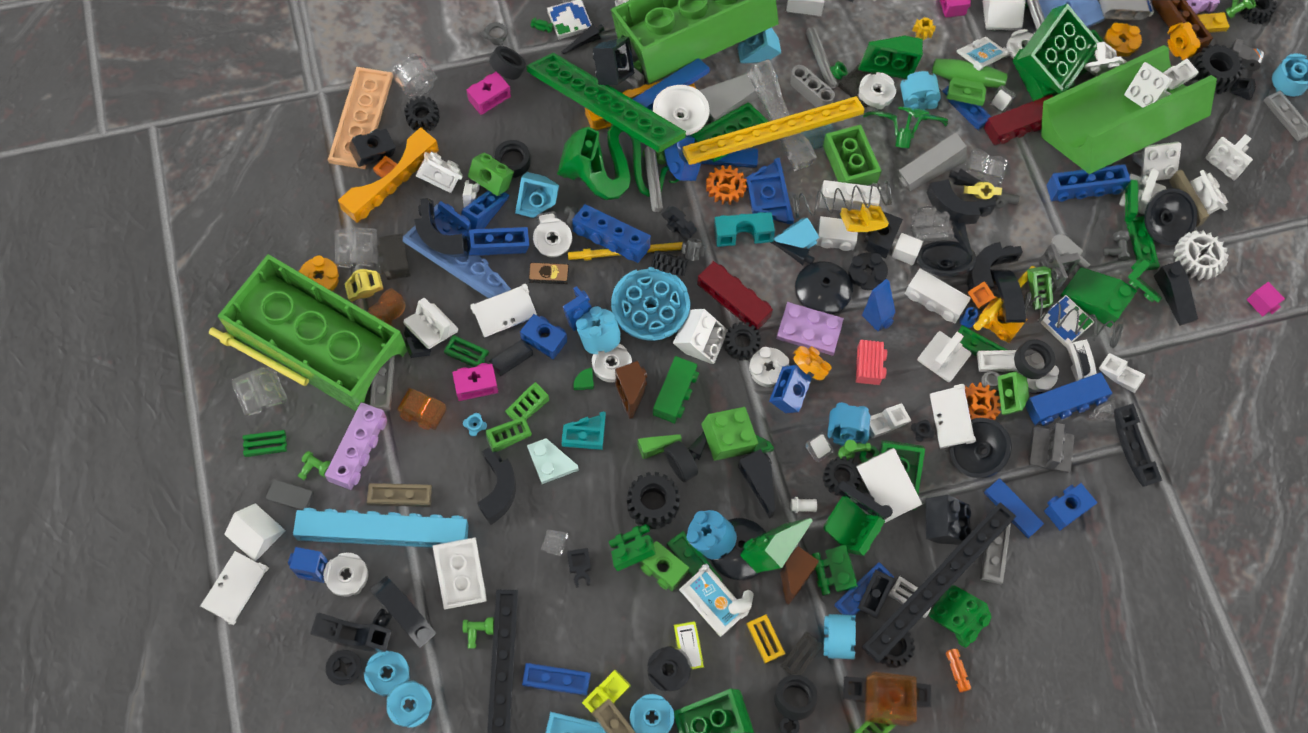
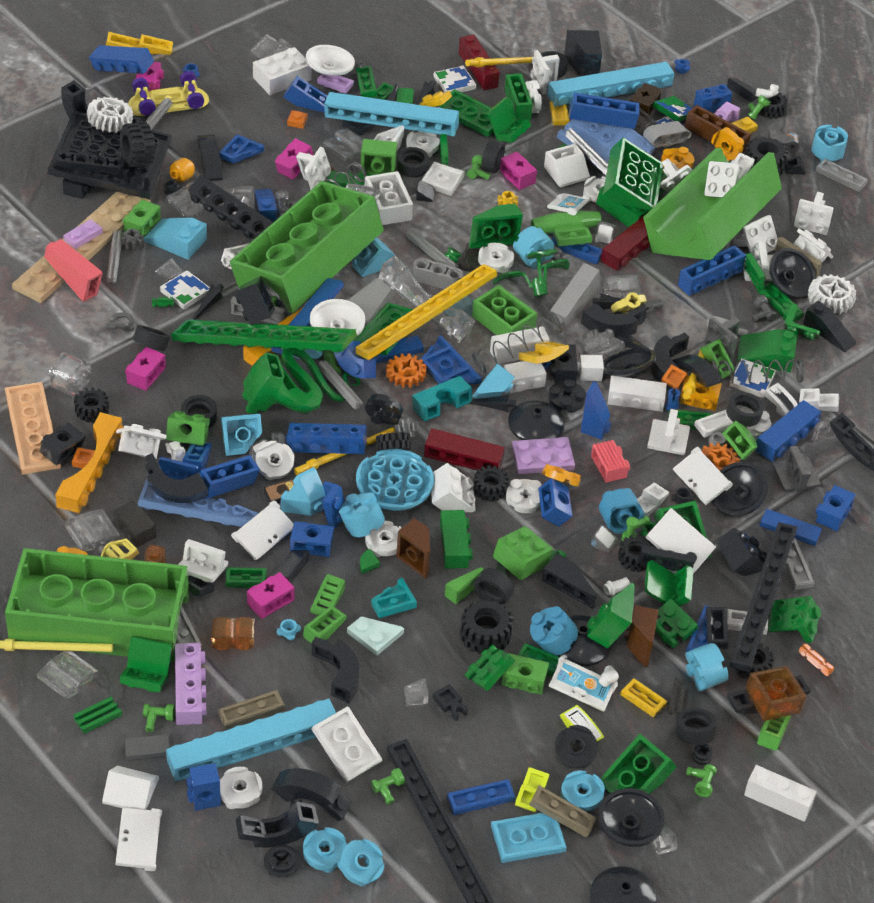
camera: 25 degrees left, 20 degrees down
(326, 416) = (147, 664): none -> green bracket
(558, 286) = (305, 495): none -> medium azure slope

